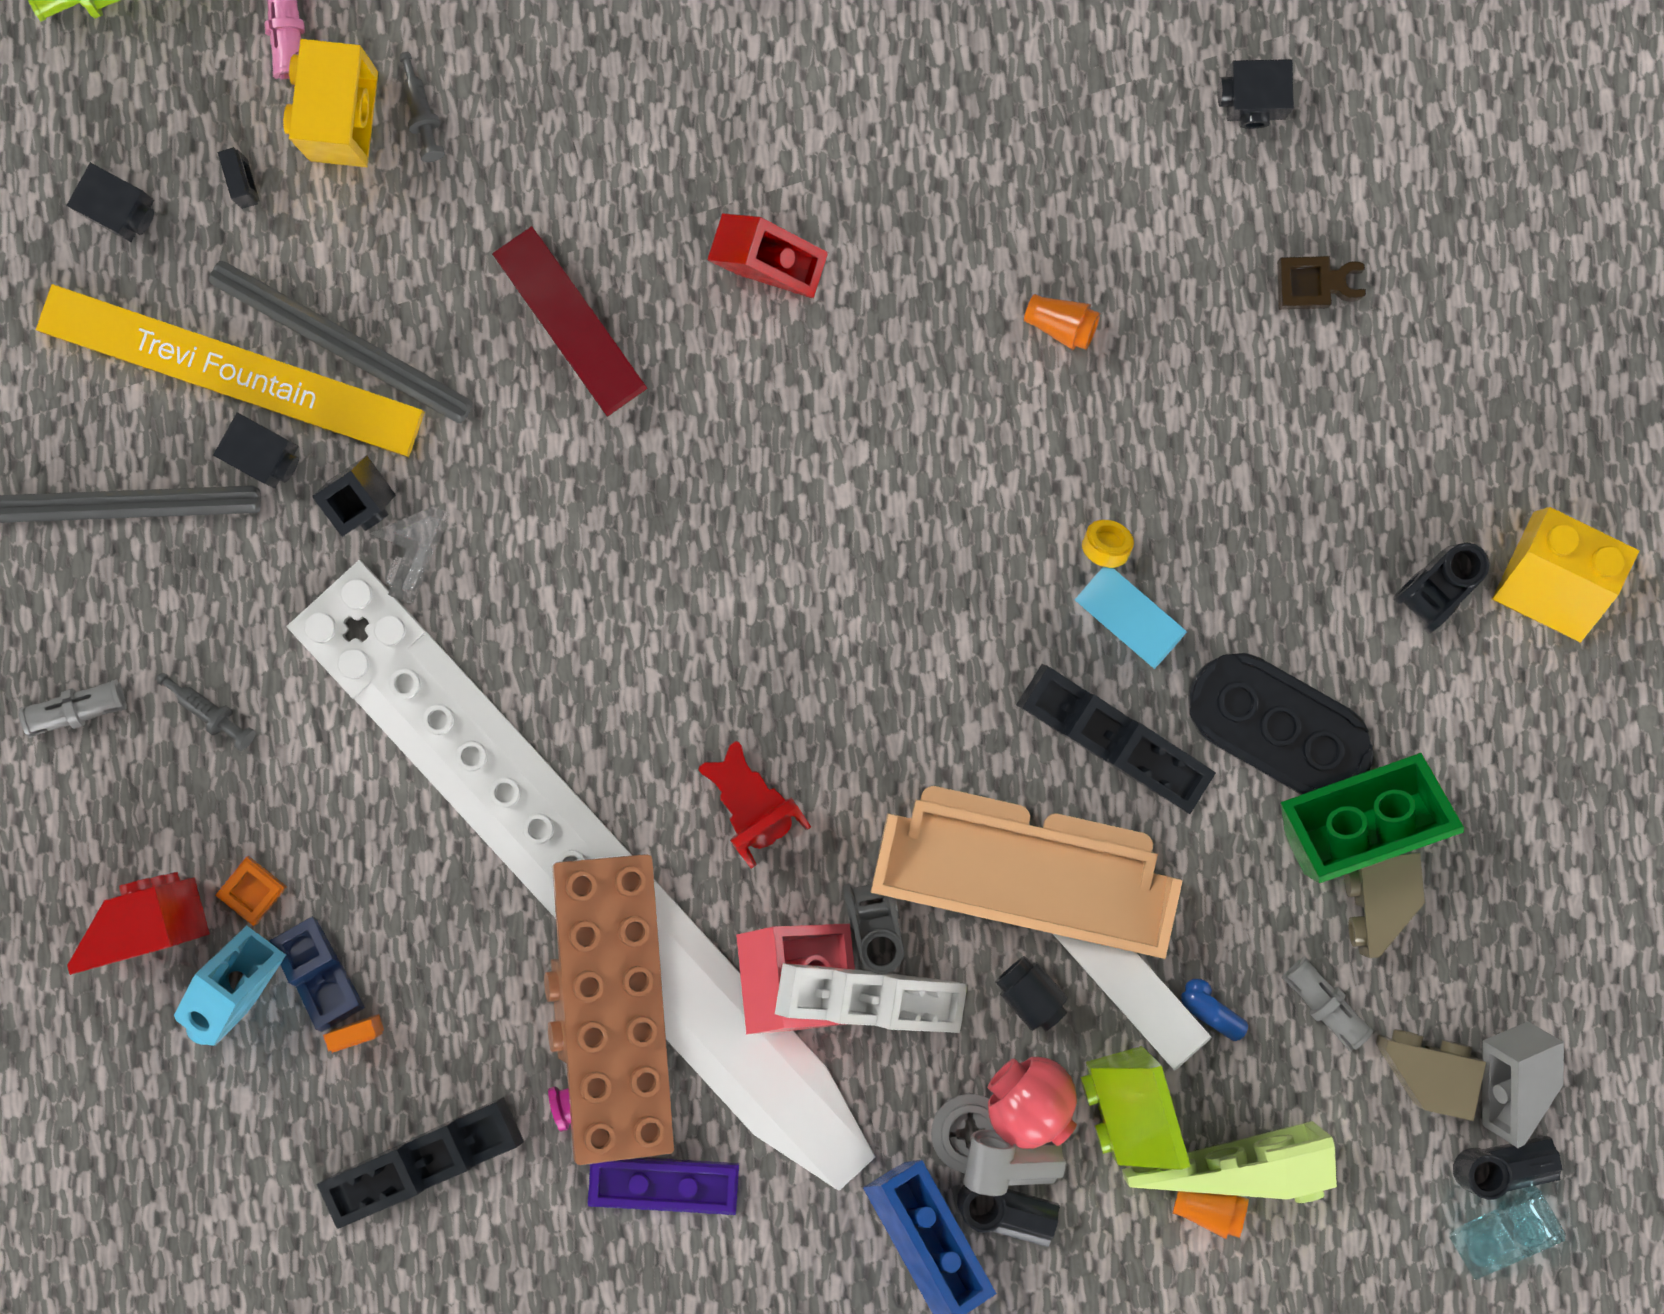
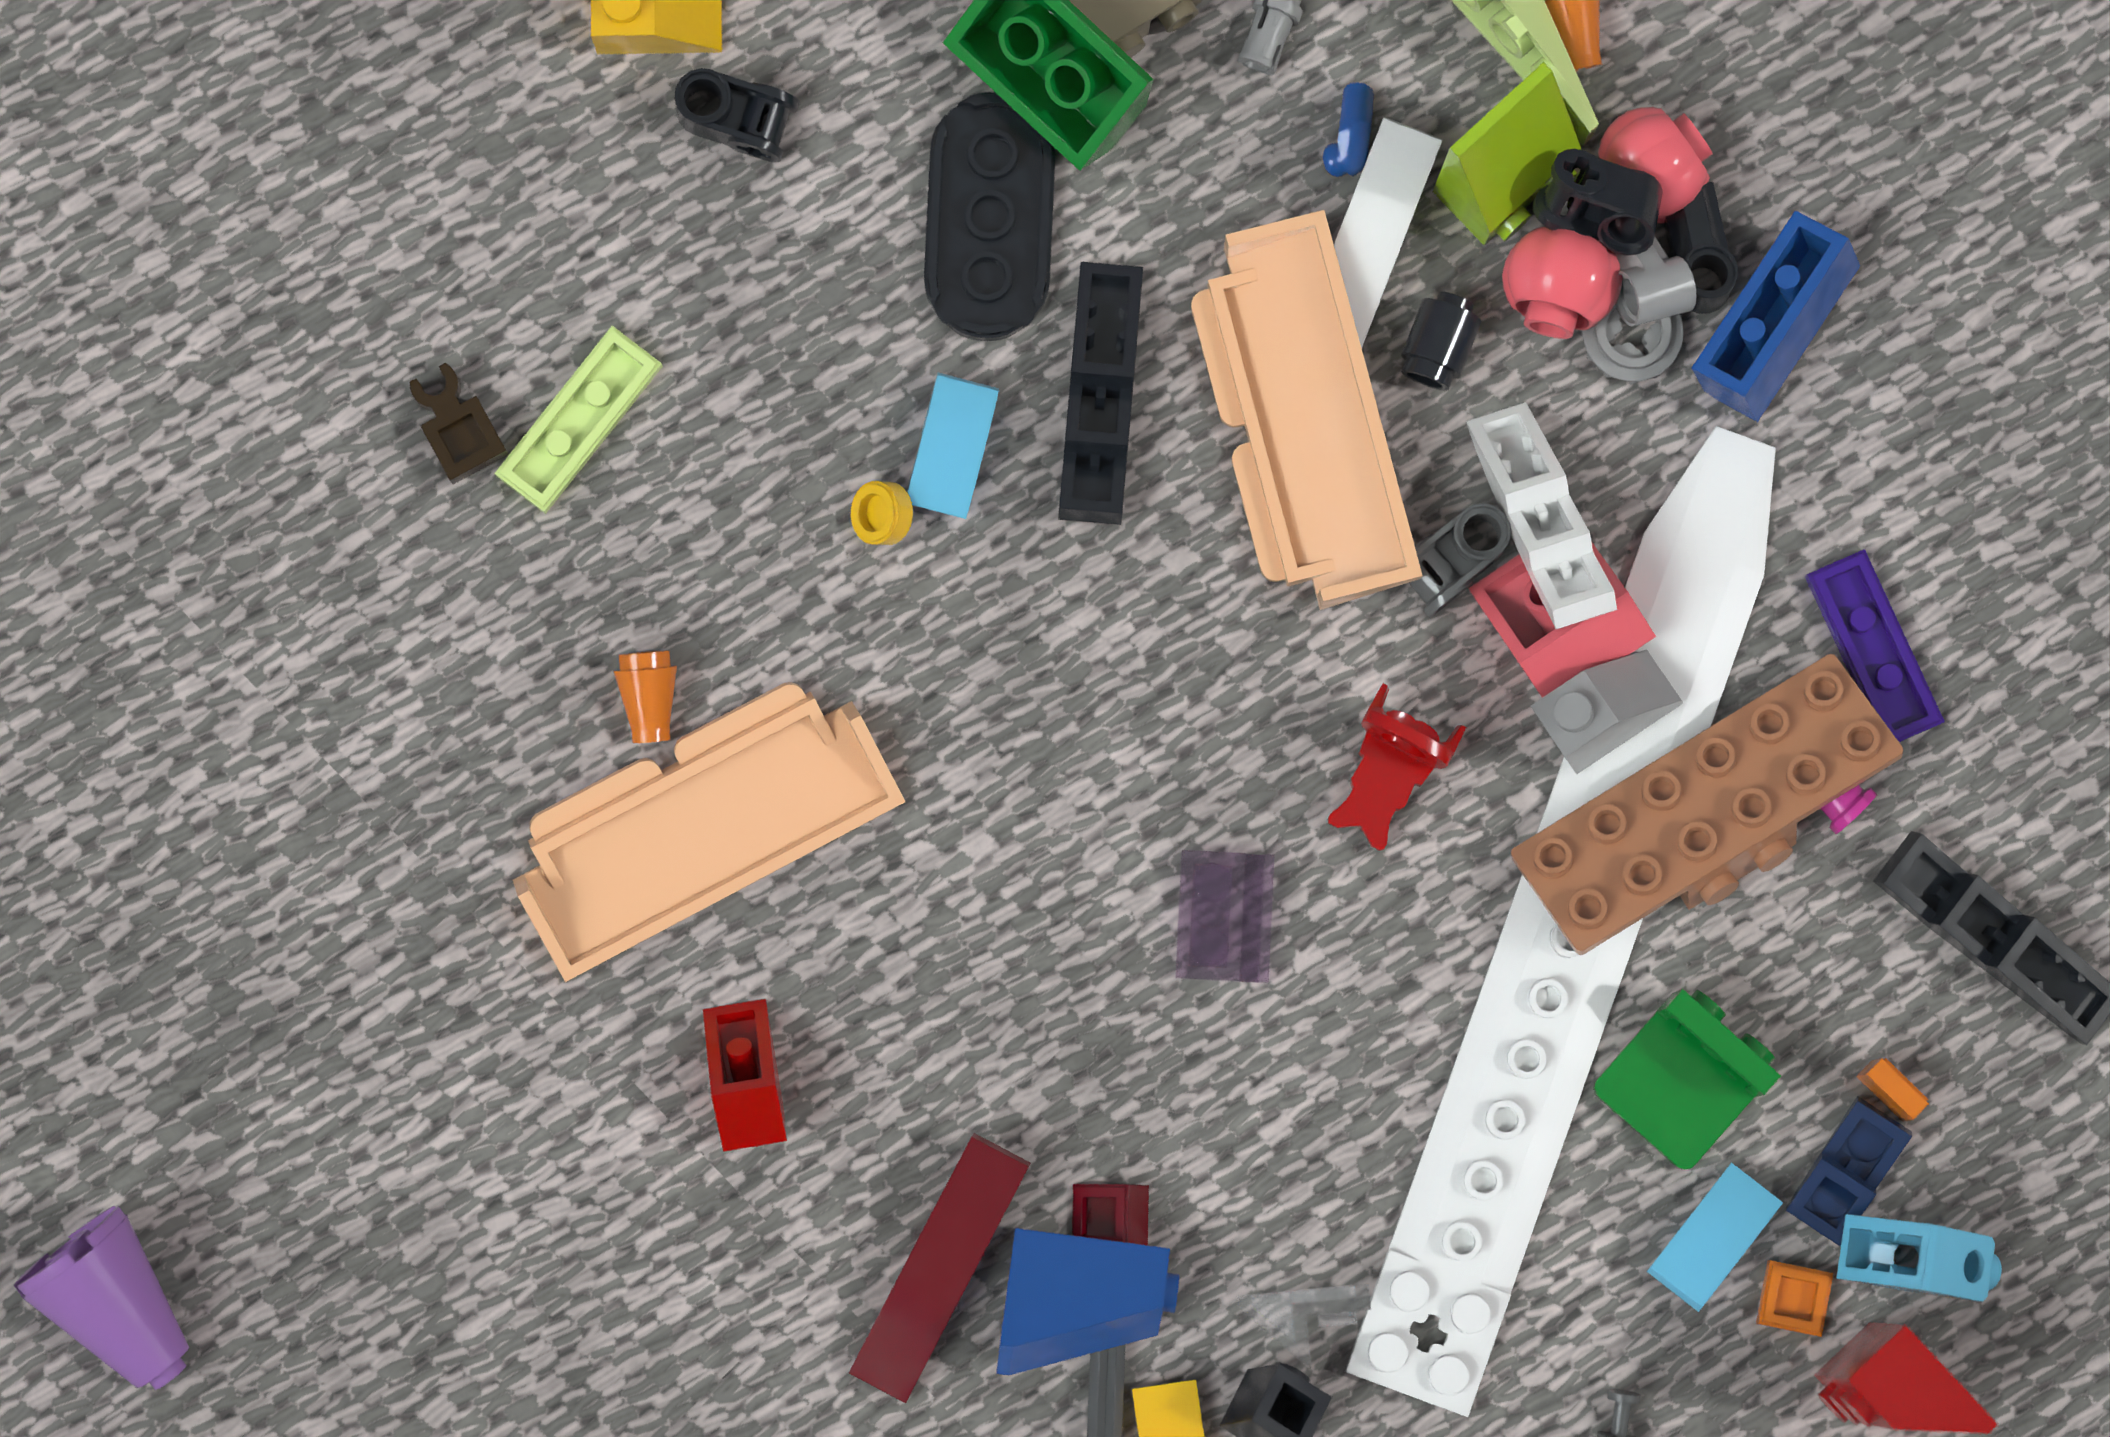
camera: 120 degrees left, 5 degrees down
(318, 857) = (1715, 1237): none -> medium azure slope
(435, 894) = (1685, 1078): none -> green bracket
(499, 402) = (1080, 1298): none -> blue slope
(545, 455) = (1111, 1212): none -> dark red slope
(709, 637) = (1224, 916): none -> clear purple plate
(715, 973) = (1605, 707): none -> light grey slope
(952, 296) = (682, 837): none -> light nougat slope
(1069, 1159) = (1603, 202): none -> black piece
(1082, 1210) = (1663, 148): none -> coral plant
(1257, 91) = (268, 603): black brick -> none
(1279, 369) = (578, 419): none -> yellowish green tile

